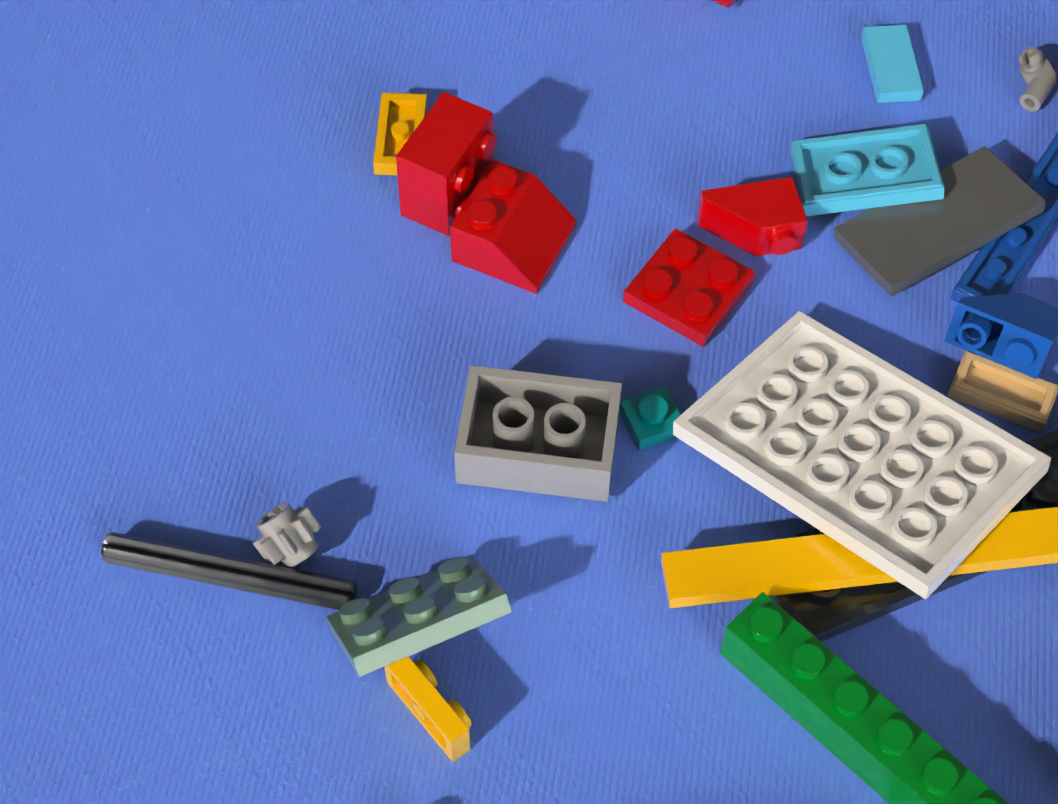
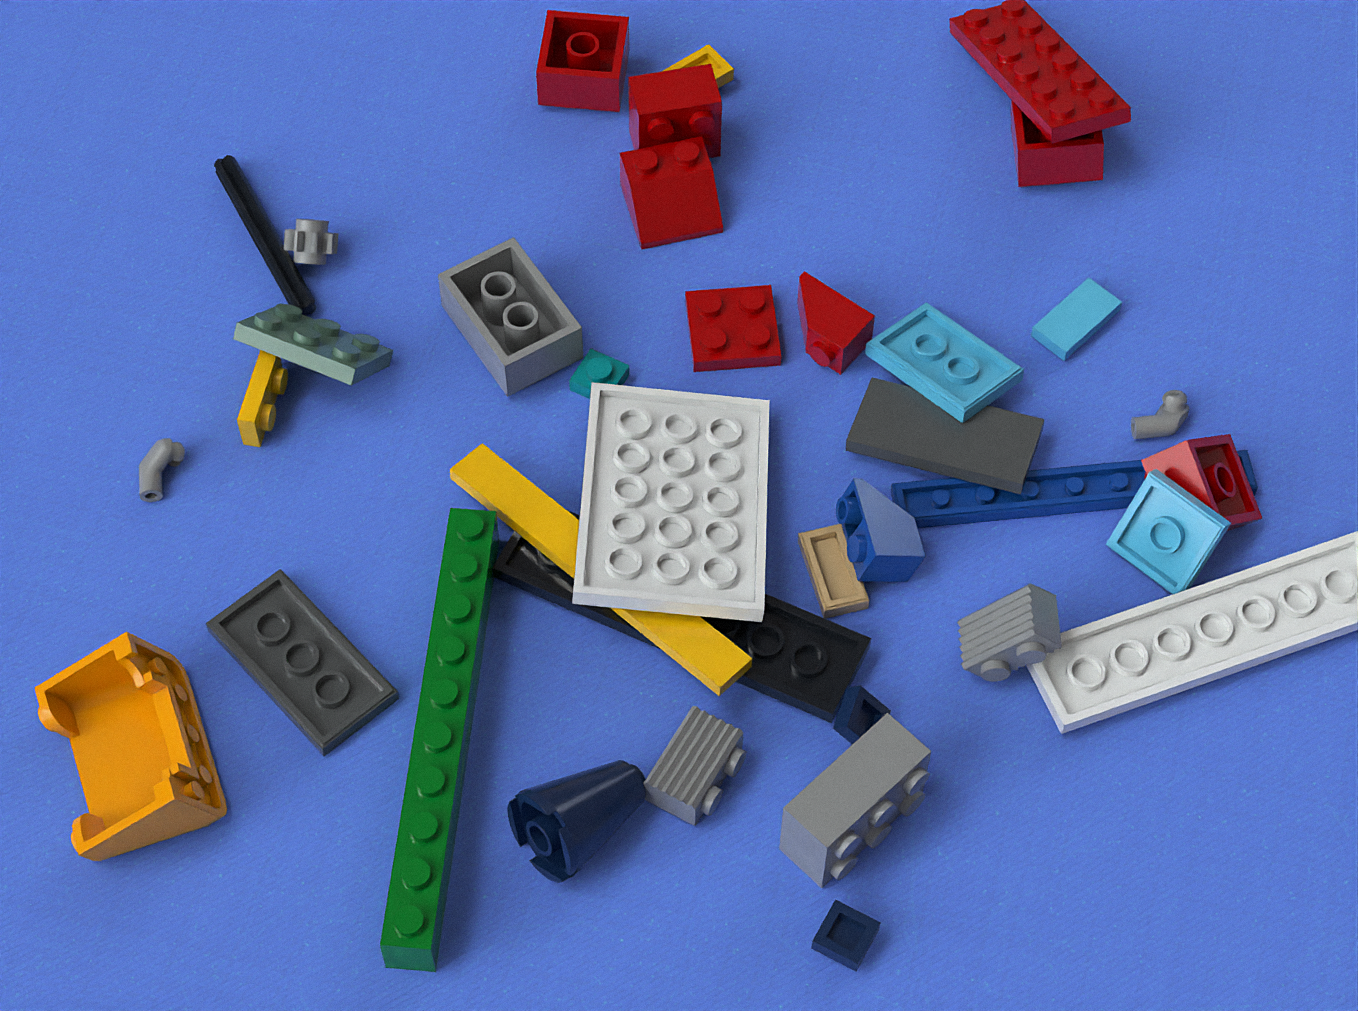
camera: 50 degrees right, 0 degrees up
(309, 186) = (583, 61): none -> red brick

